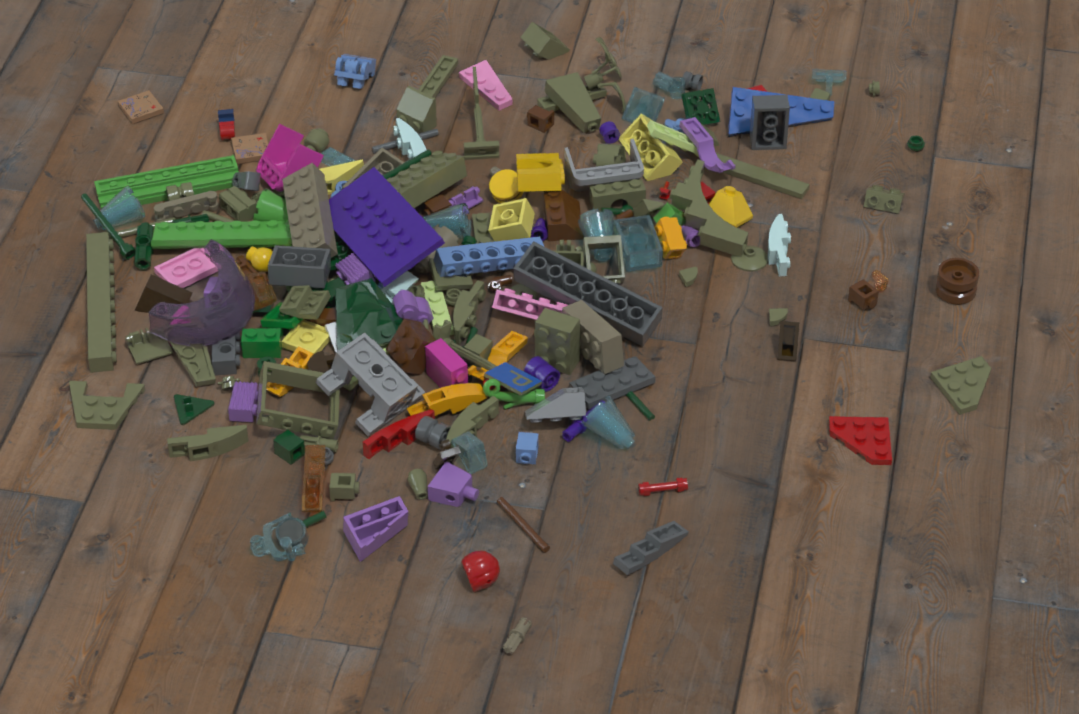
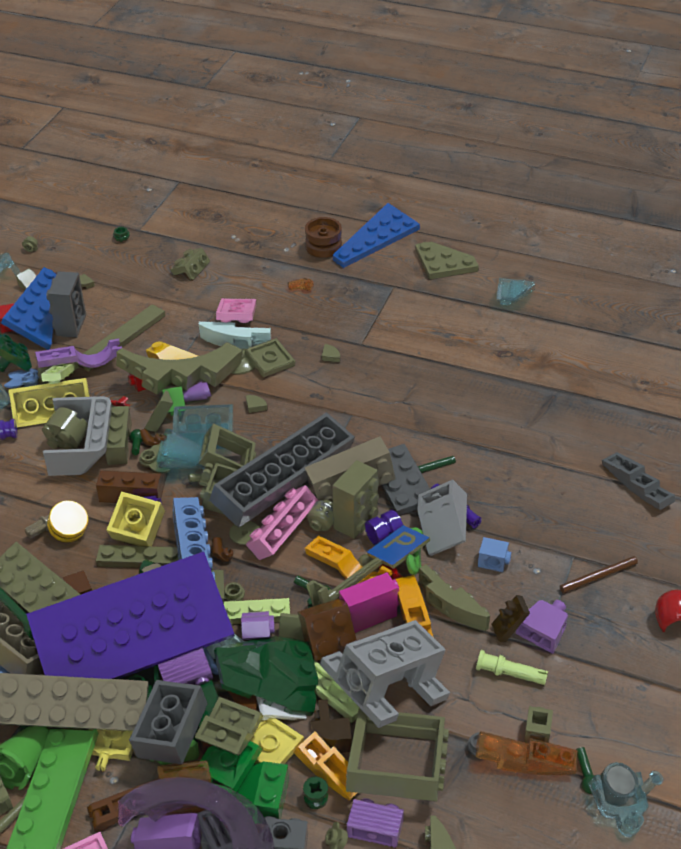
camera: 80 degrees left, 0 degrees up
(259, 258) = (109, 780): yellow piece -> none
(289, 447) = (463, 777): dark green brick -> none
(330, 443) = (457, 747): olive axle -> none
(375, 526) = (610, 699): medium lavender wedge -> none
(394, 434) = (457, 668): red slope -> none
(403, 462) = (502, 666): none -> yellowish green pin
(418, 481) = (534, 654): olive cone -> none
(431, 432) = (461, 630): dark grey wheel -> none
(453, 218) = (113, 567): clear light blue cone -> none
(465, 310) = (266, 585): olive slope -> none
(470, 197) = (67, 561): medium lavender hinge -> none
(472, 452) = (494, 596): clear light blue slope -> none
(480, 346) = (331, 574): olive brick -> none
(540, 172) = (87, 476): yellow arch -> none
(610, 424) = (475, 479): clear light blue cone -> none
(670, 237) = (200, 396): light orange brick -> none
(680, 484) = (556, 472): red bar -> none
(755, 274) = (270, 357): none -> olive tile
(788, 340) = (375, 348): dark brown slope -> none
(811, 236) = (236, 310): none -> bright pink plate
(831, 134) = (86, 281): none -> olive tile
(863, 294) = (322, 294): reddish brown brick -> none
(864, 436) = (502, 325): red plate -> none
(922, 436) = (513, 290): none -> clear light blue slope
(1002, 331) = (380, 231): none -> blue wing

